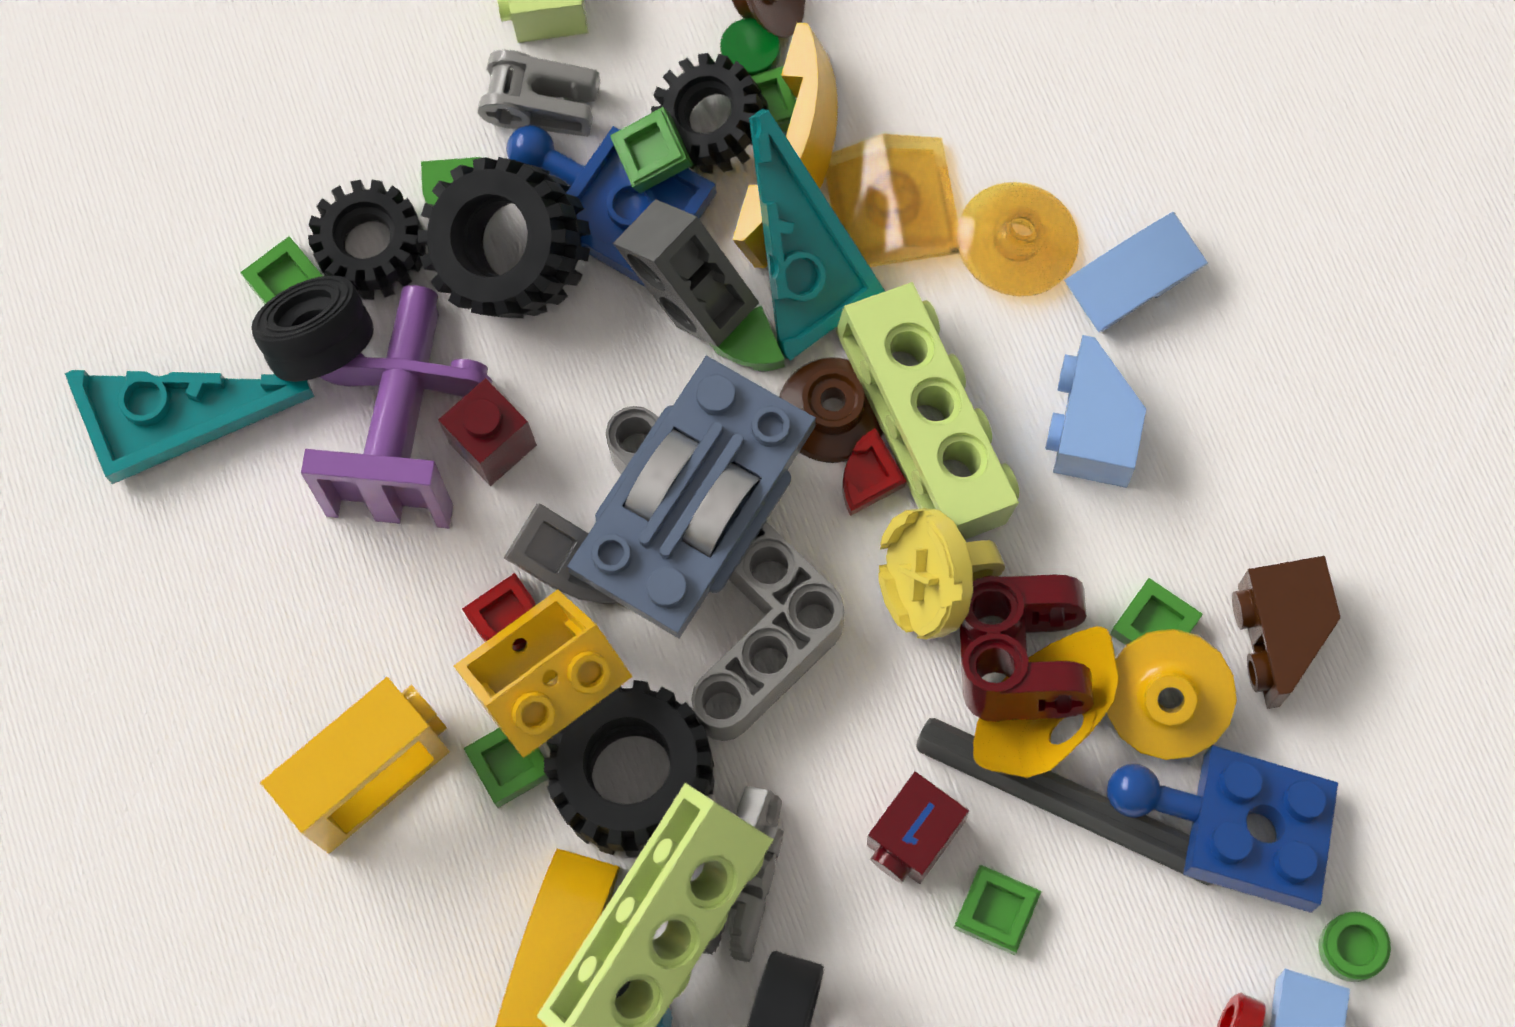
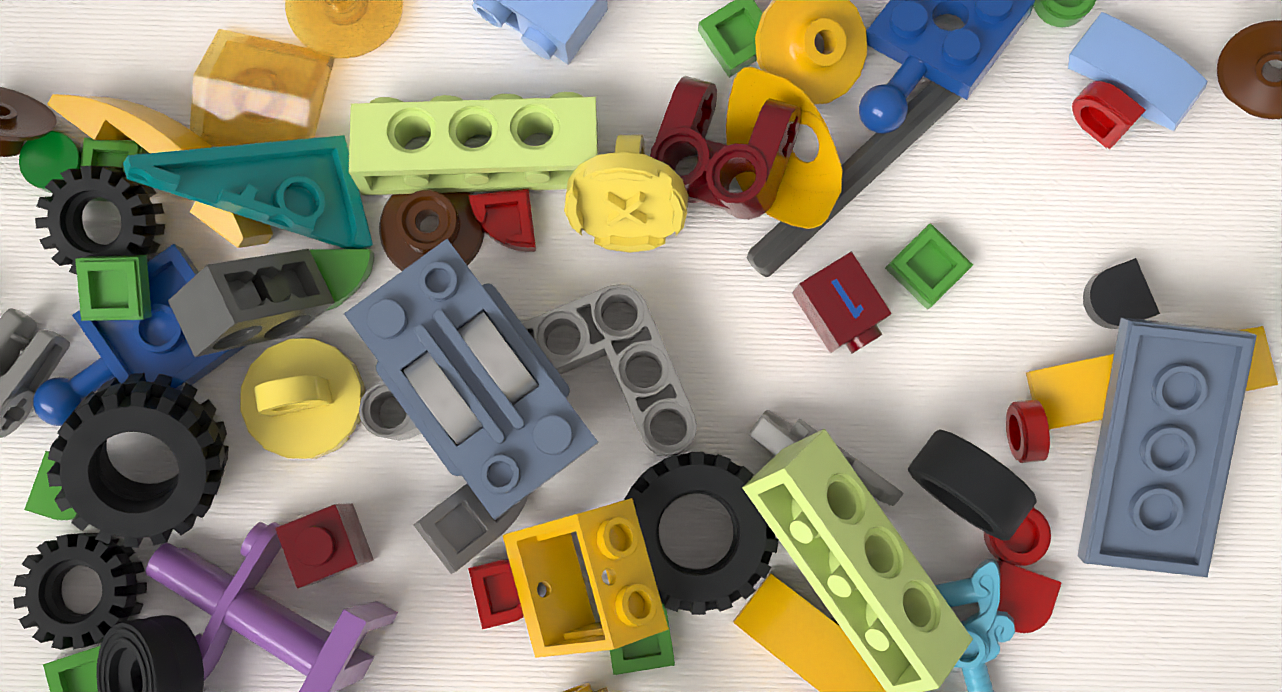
camera: 75 degrees left, 10 degrees up
(617, 357) = (301, 398): none -> light yellow tile

